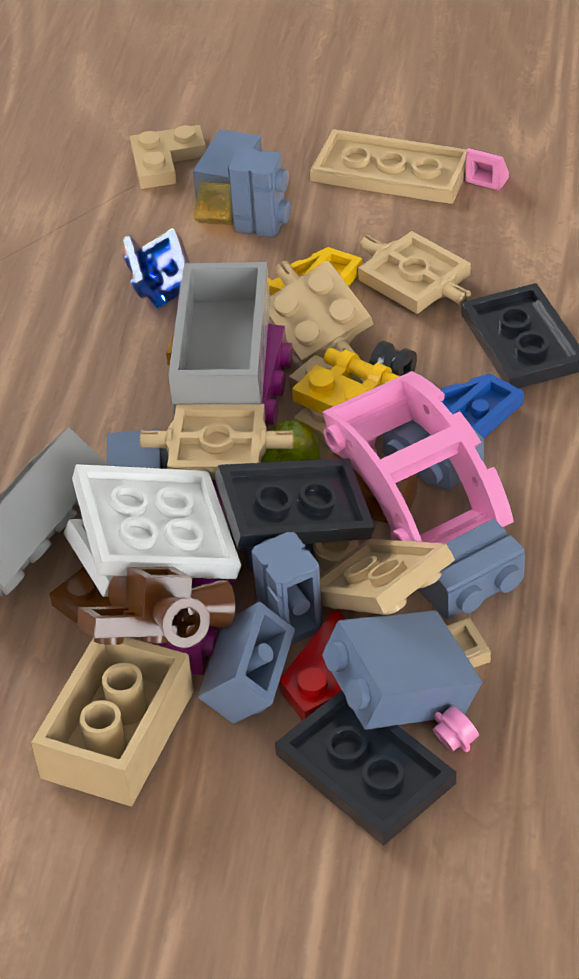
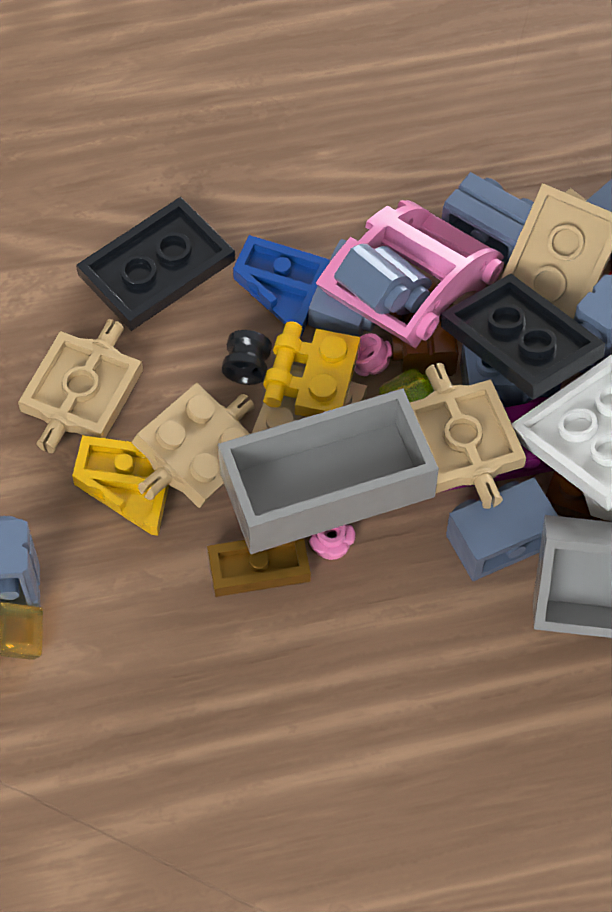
camera: 115 degrees left, 15 degrees up
(157, 267) = (158, 644): clear blue bracket -> none
(388, 407) = (383, 280): none -> sand blue brick

